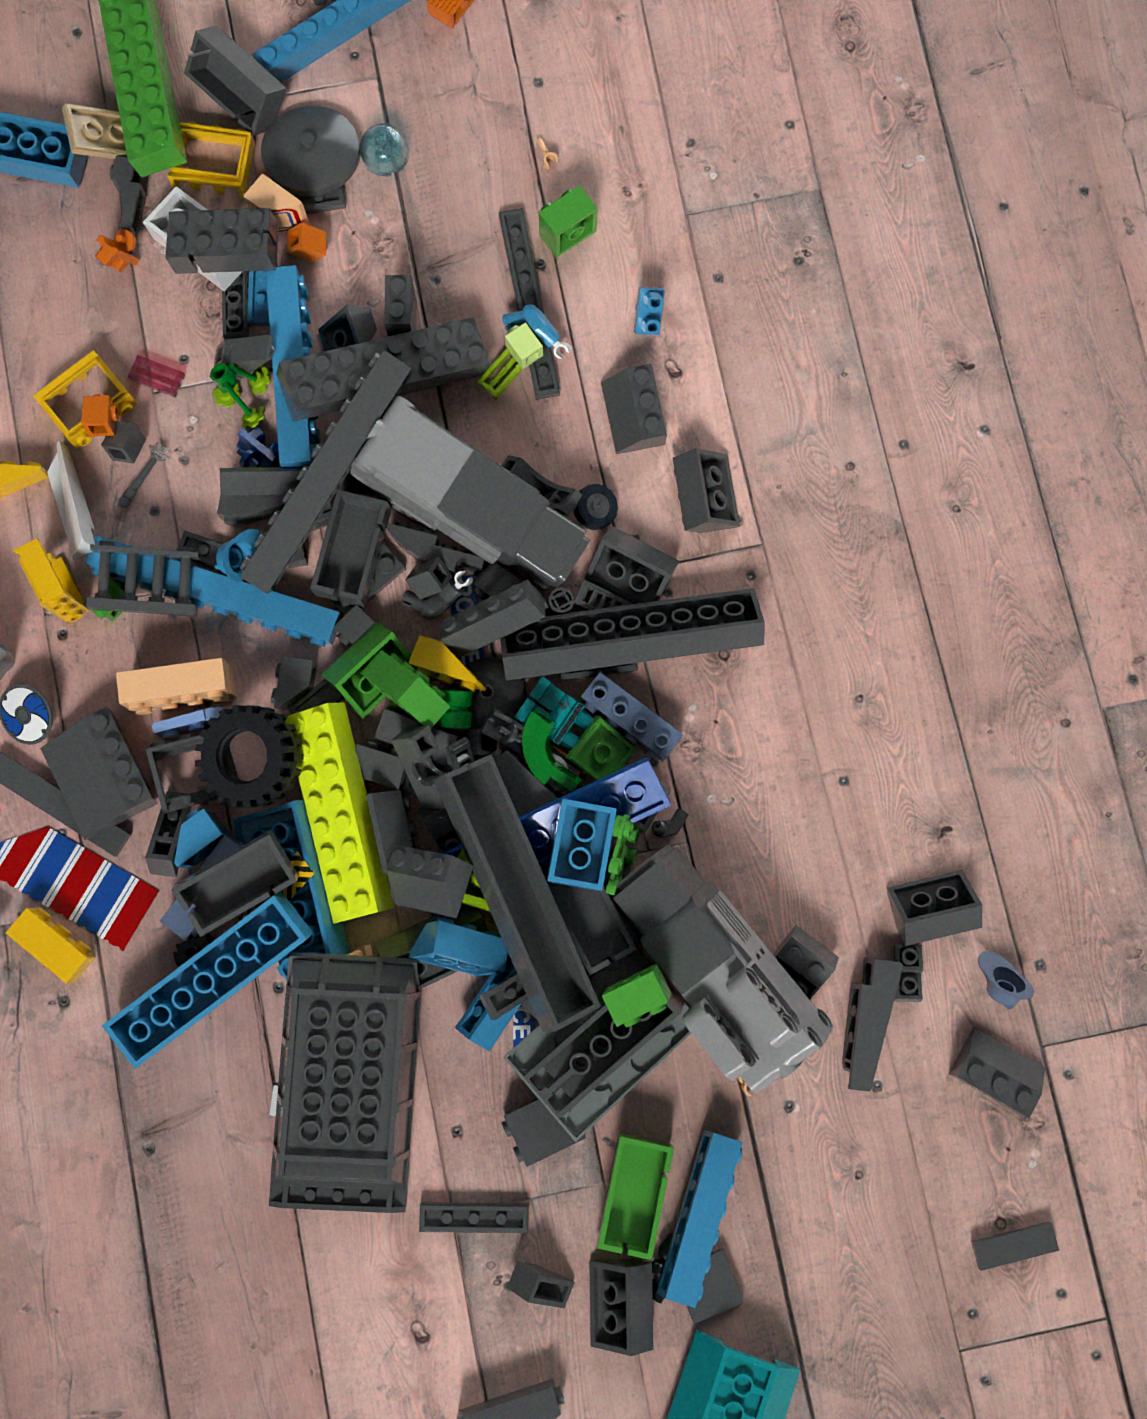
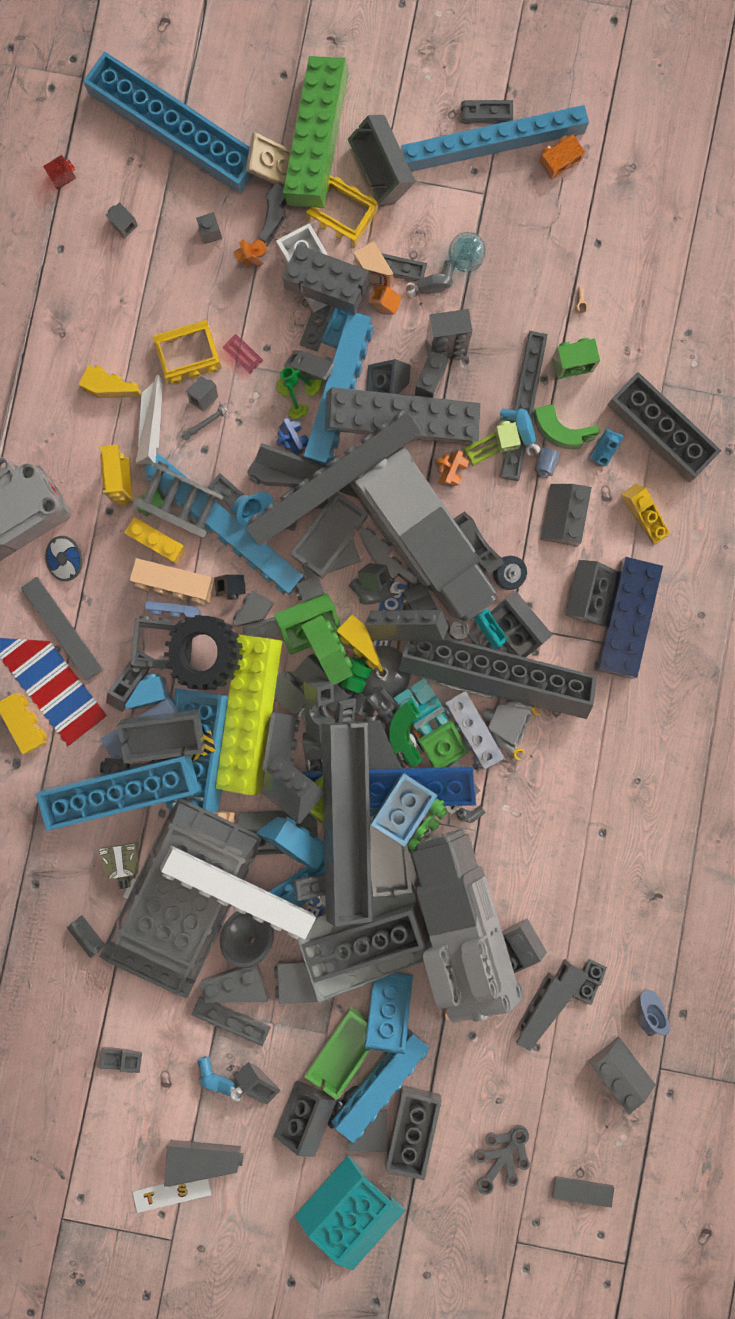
camera: 25 degrees right, 5 degrees up
(54, 241) = (209, 228): none -> dark grey brick
(98, 773) = (97, 619): dark grey slope -> none
(99, 415) = (193, 370): orange brick -> none
(144, 645) = (155, 540): none -> yellow arch
(241, 1187) = (86, 936): none -> dark grey hinge
(249, 1070) = (120, 862): none -> olive torso
(251, 662) = (229, 586): none -> black brick
(310, 150) = (414, 232): dark grey dish -> none
(350, 1331) = (120, 1059): none -> dark grey slope
(357, 200) = (434, 282): none -> dark grey arm
(400, 245) = (449, 333): none -> dark grey piece
(411, 1040) = (237, 892): none -> white brick
(439, 1095) = (237, 937): none -> dark grey dish
(461, 1167) = (235, 986): none -> dark grey wedge
(467, 406) = (448, 466): none -> orange hips
(487, 1306) = (217, 1082): none -> dark azure arm
(585, 358) = (547, 462): none -> sand blue brick
(586, 319) = (559, 435): none -> bright green arch
(599, 583) = (490, 628): none -> teal tile
(636, 996) = (399, 927): bright green brick -> none
(672, 691) = (510, 724): none -> light grey torso
(672, 1118) = (389, 1013): none -> dark azure tile
(708, 260) = (664, 427): none -> dark grey brick
(729, 370) = (645, 512): none -> yellow slope
(764, 503) = (629, 618): none -> dark blue brick
(767, 1262) = (413, 1132): none -> dark grey brick
(895, 1243) = (504, 1156): none -> dark grey plant
(935, 907) = (627, 946): dark grey slope -> none

